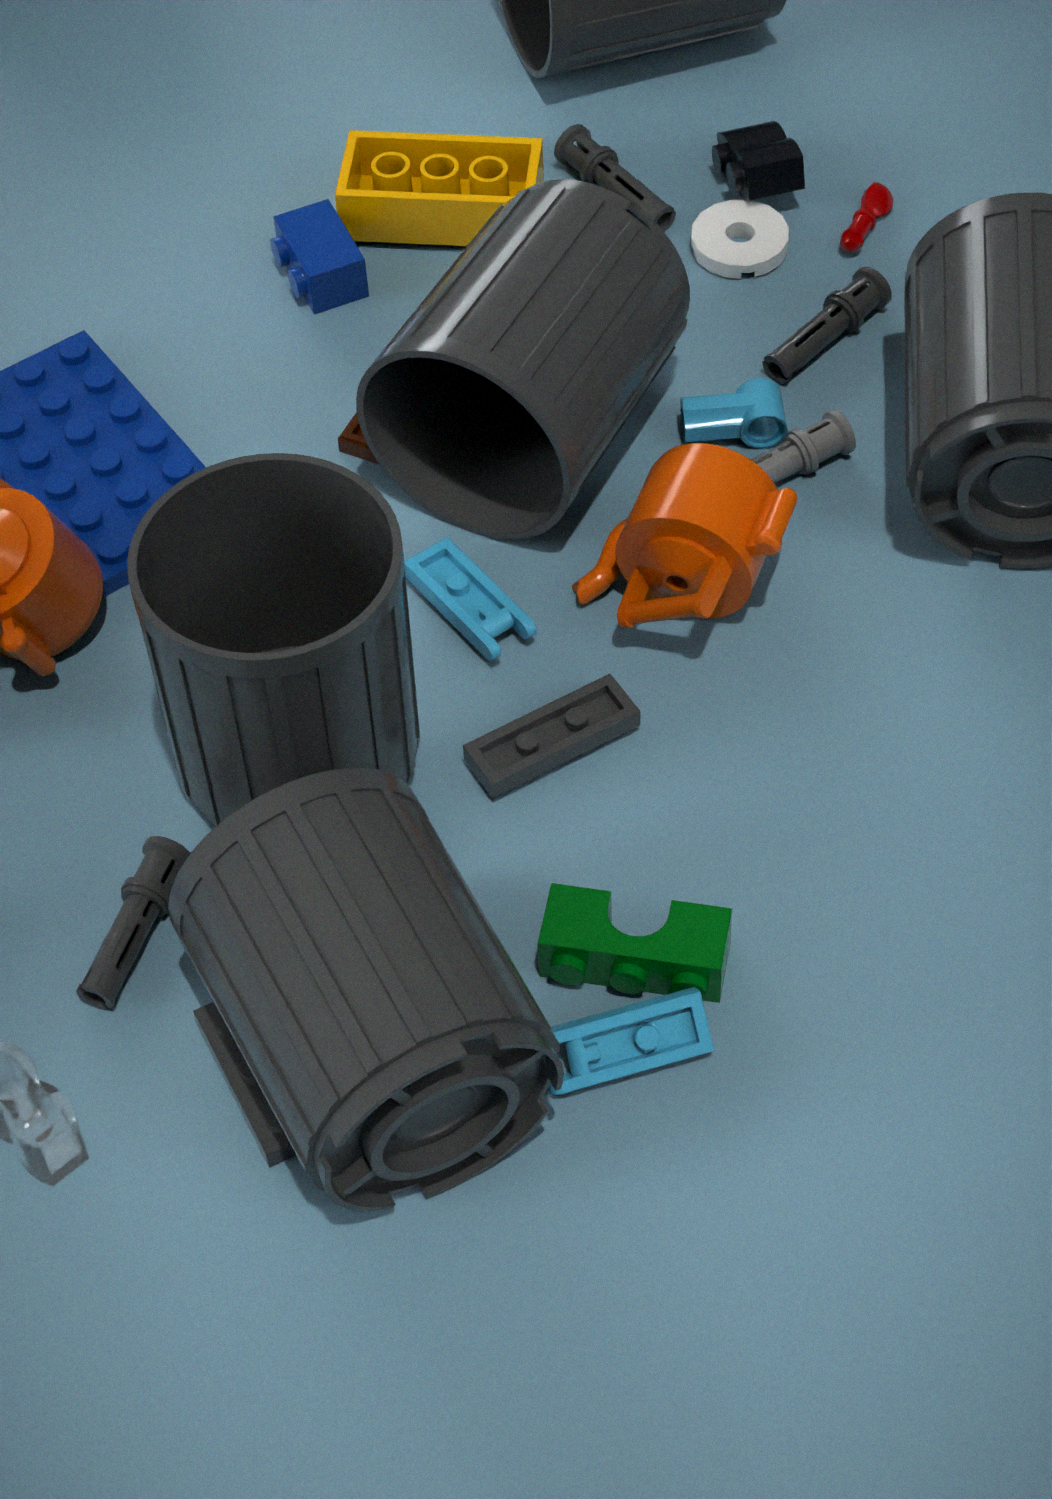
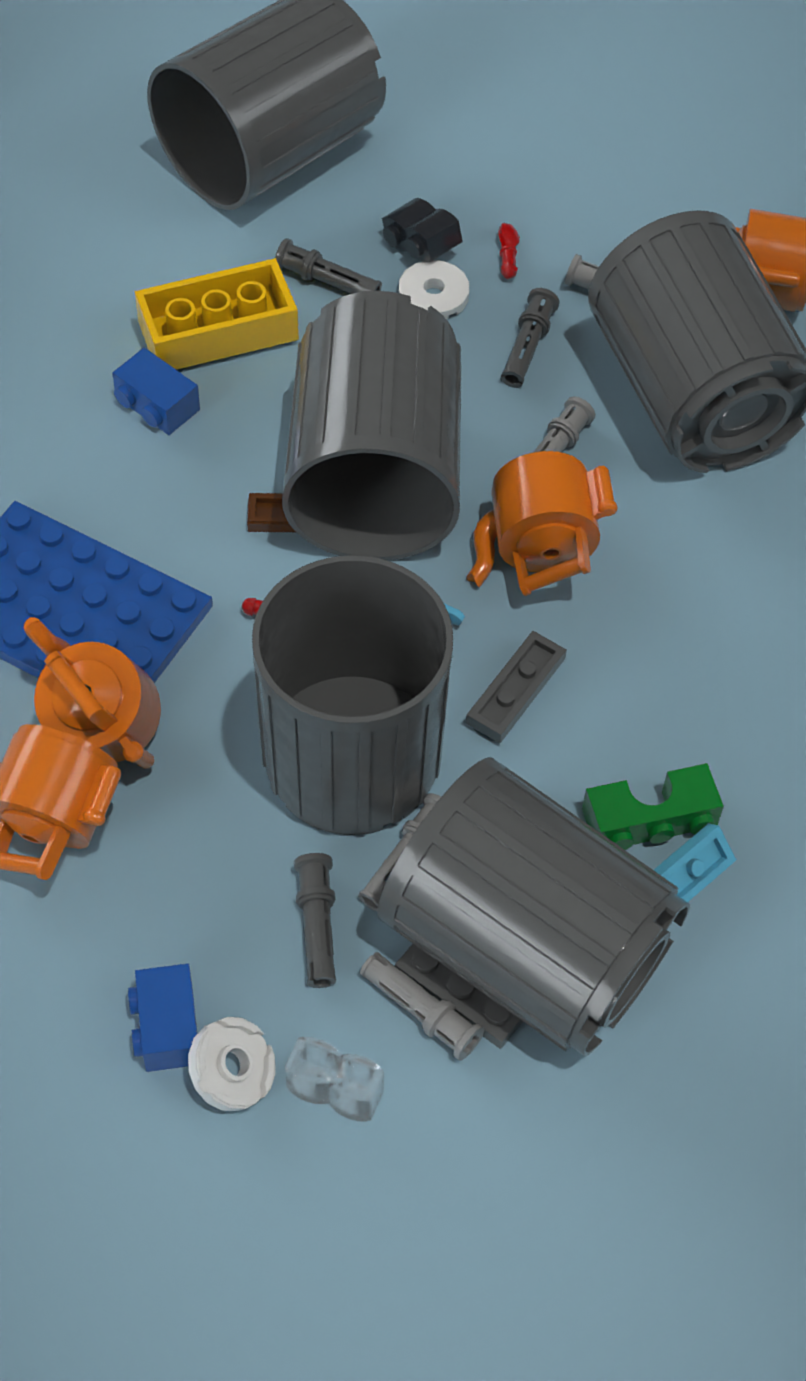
camera: 30 degrees left, 5 degrees up
(205, 1091) = (437, 1016): none -> light grey pin
(749, 414) = (514, 416): medium azure piece -> none

